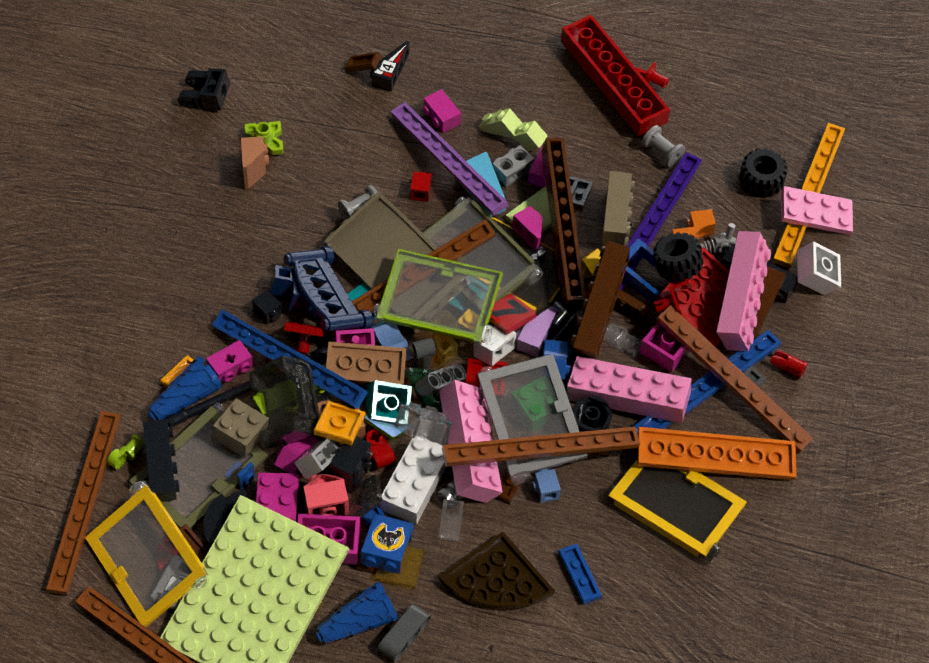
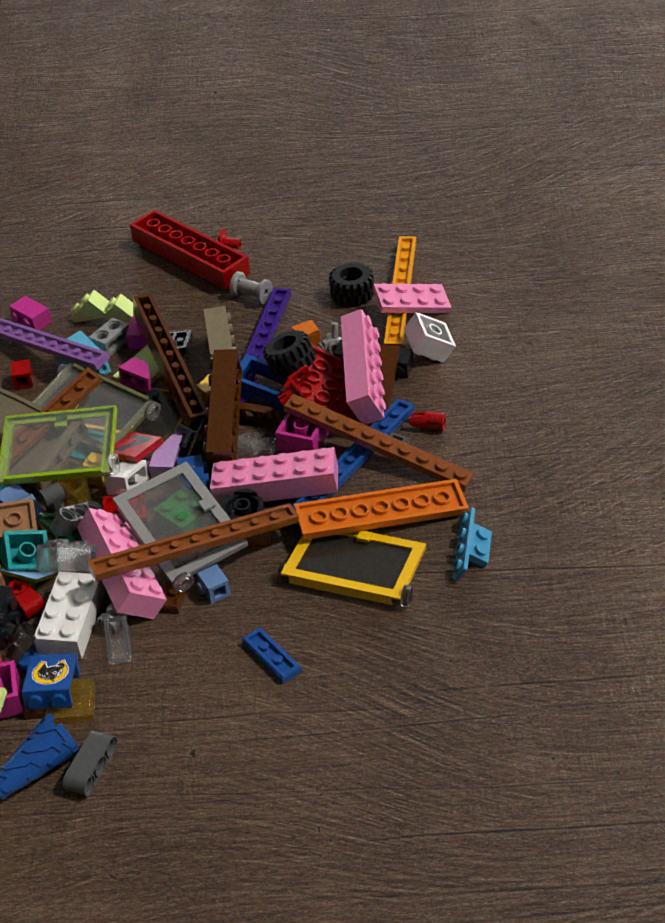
camera: 10 degrees left, 15 degrees down
(497, 577) = (182, 682): dark brown plate -> none
(787, 517) = (472, 544): none -> dark azure bracket

